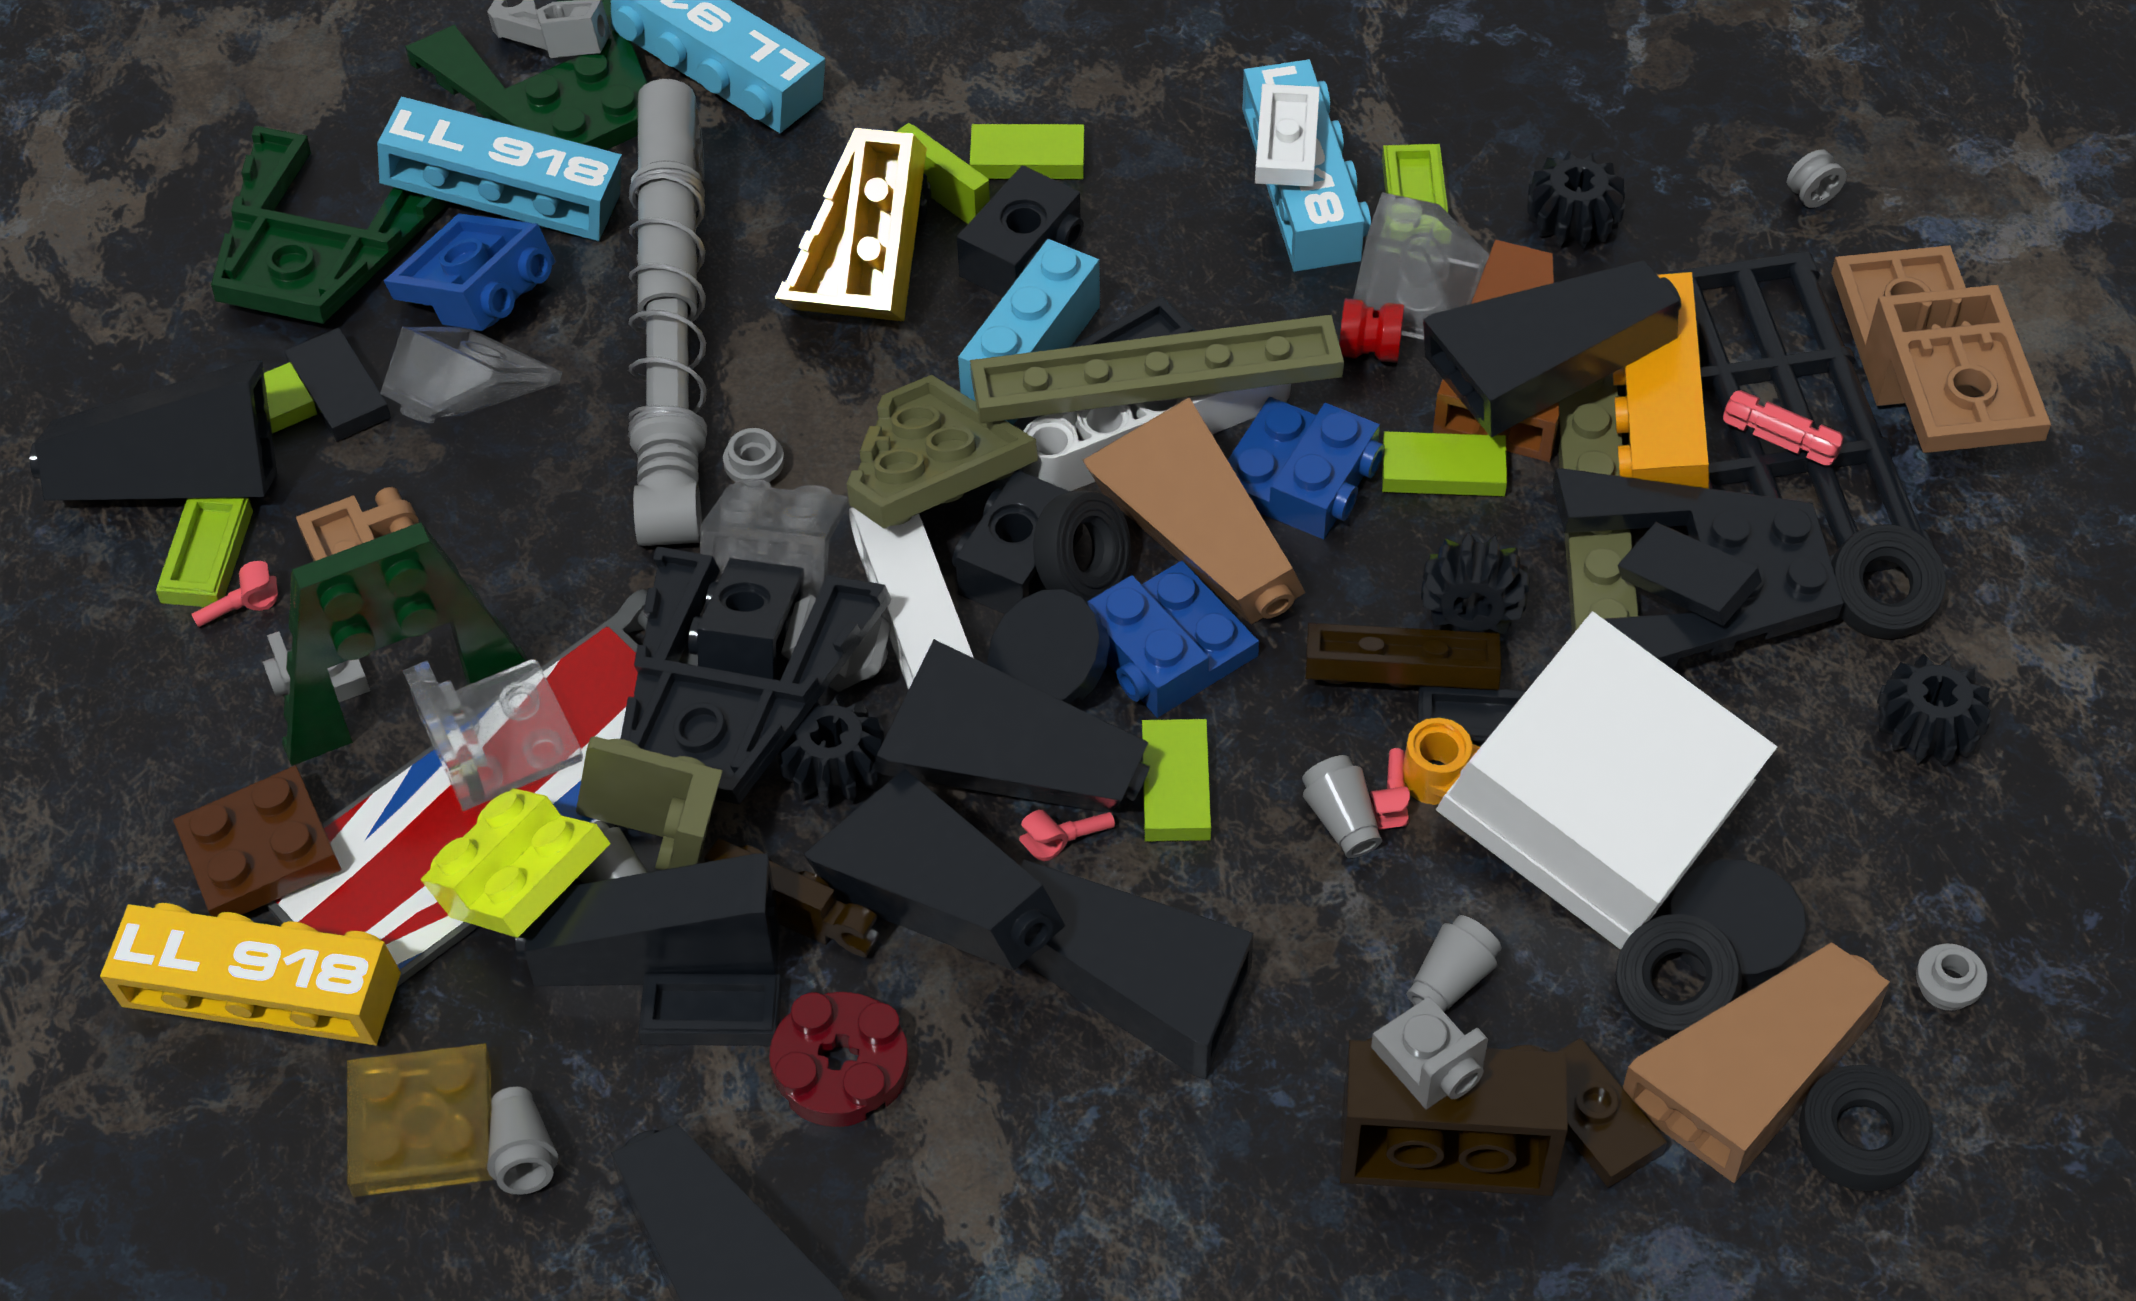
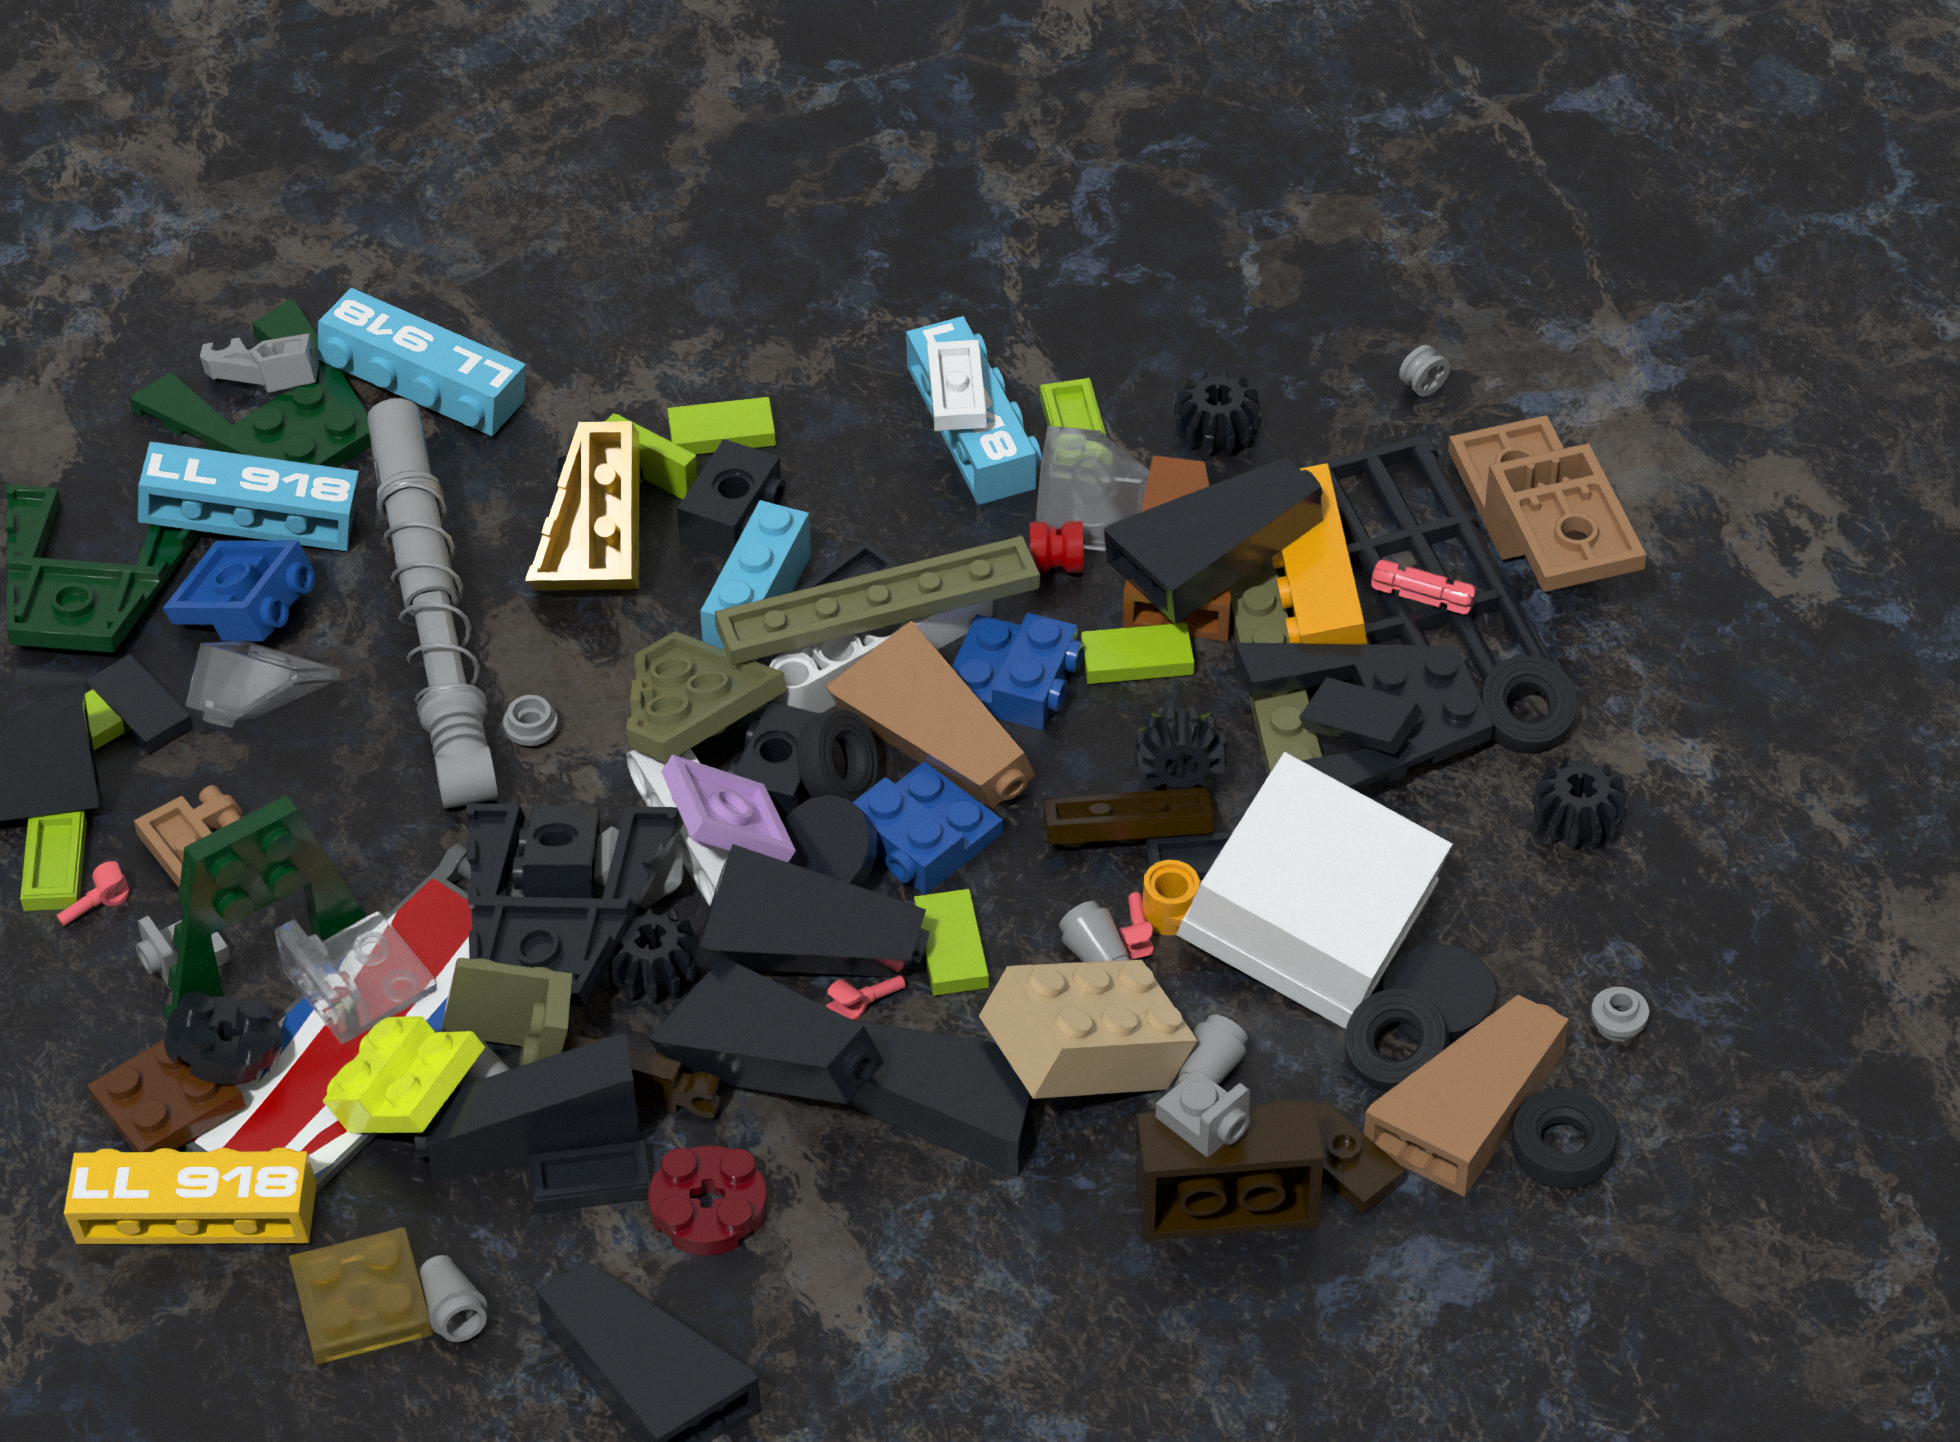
camera: 10 degrees left, 5 degrees down
(358, 772) = (203, 1020): none -> black plate
(774, 527) = (564, 776): clear bracket -> none
(939, 595) = (726, 809): none -> lavender plate
(1311, 915) = (1087, 1028): none -> tan brick

